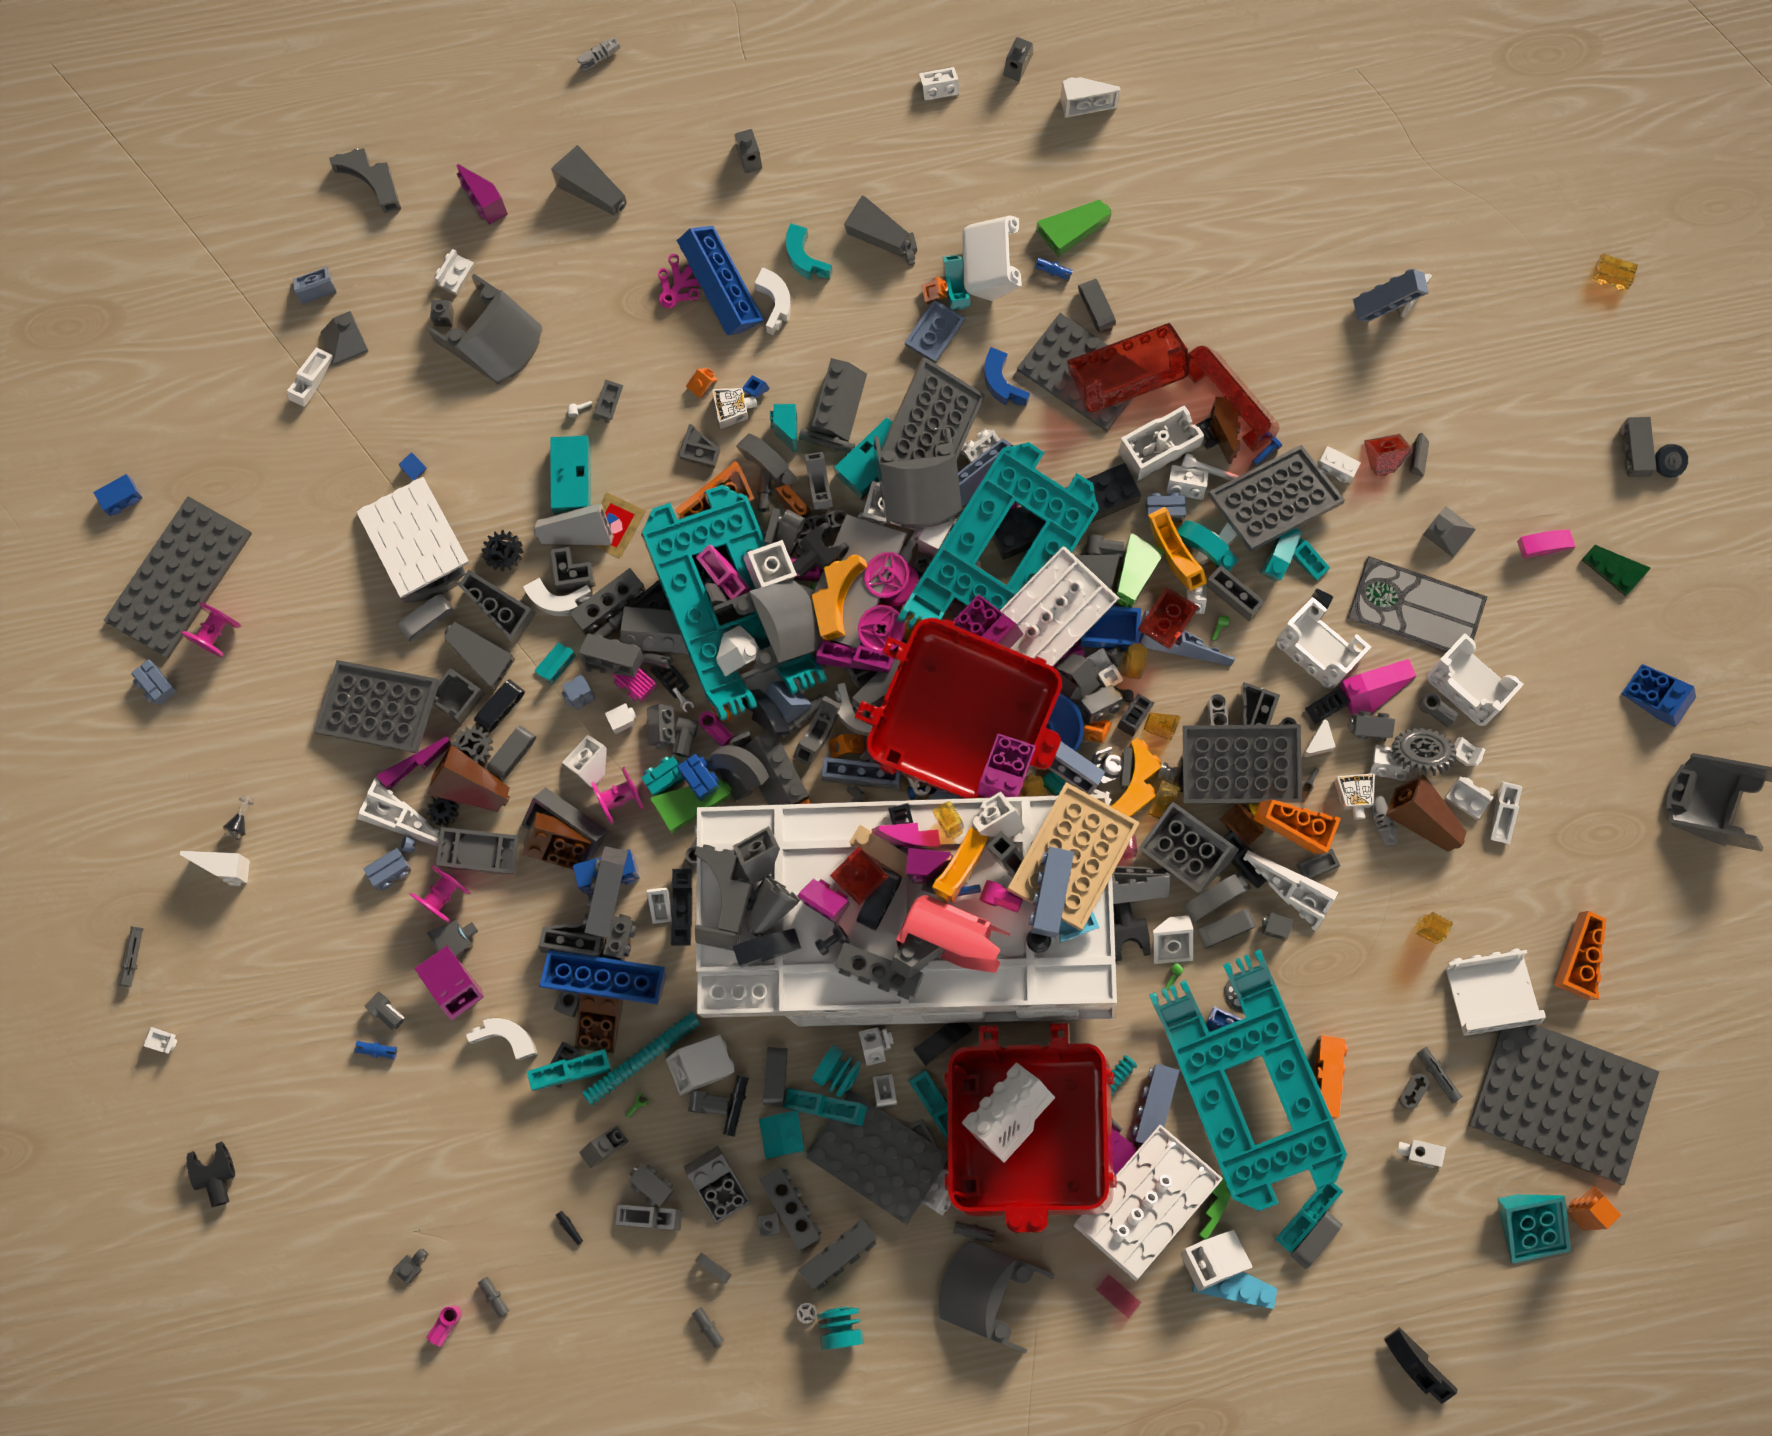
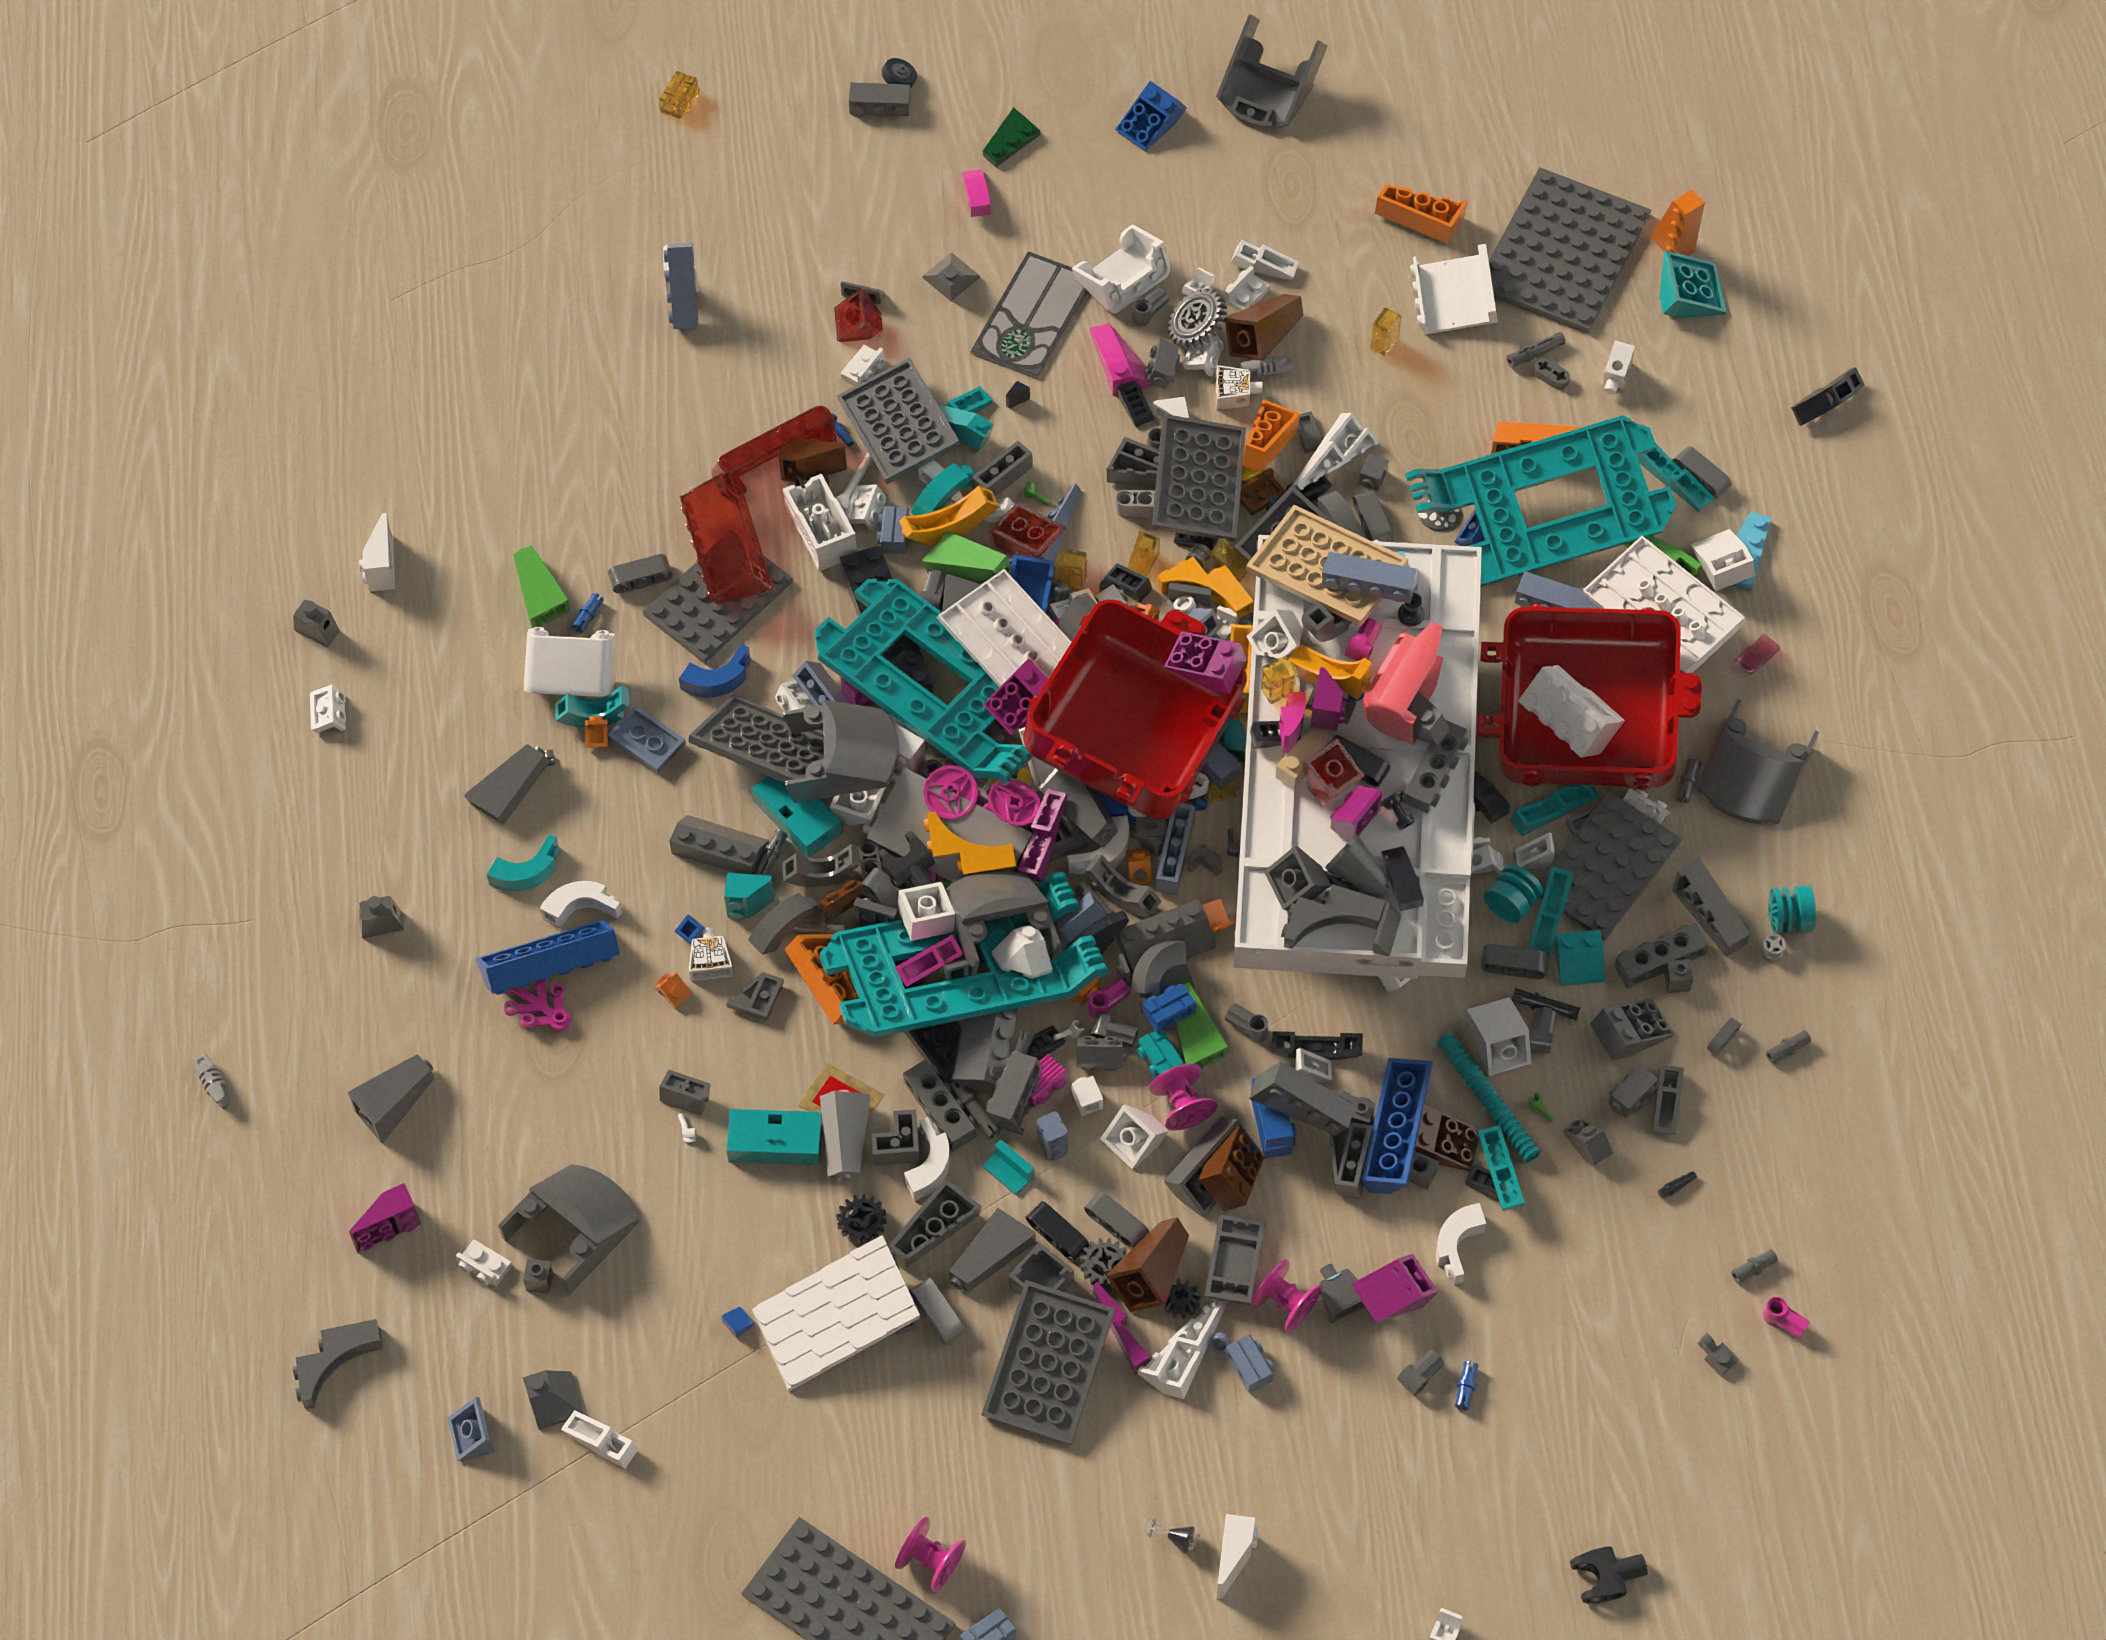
camera: 85 degrees left, 15 degrees down
(1319, 647) = (1074, 403): white windscreen -> none

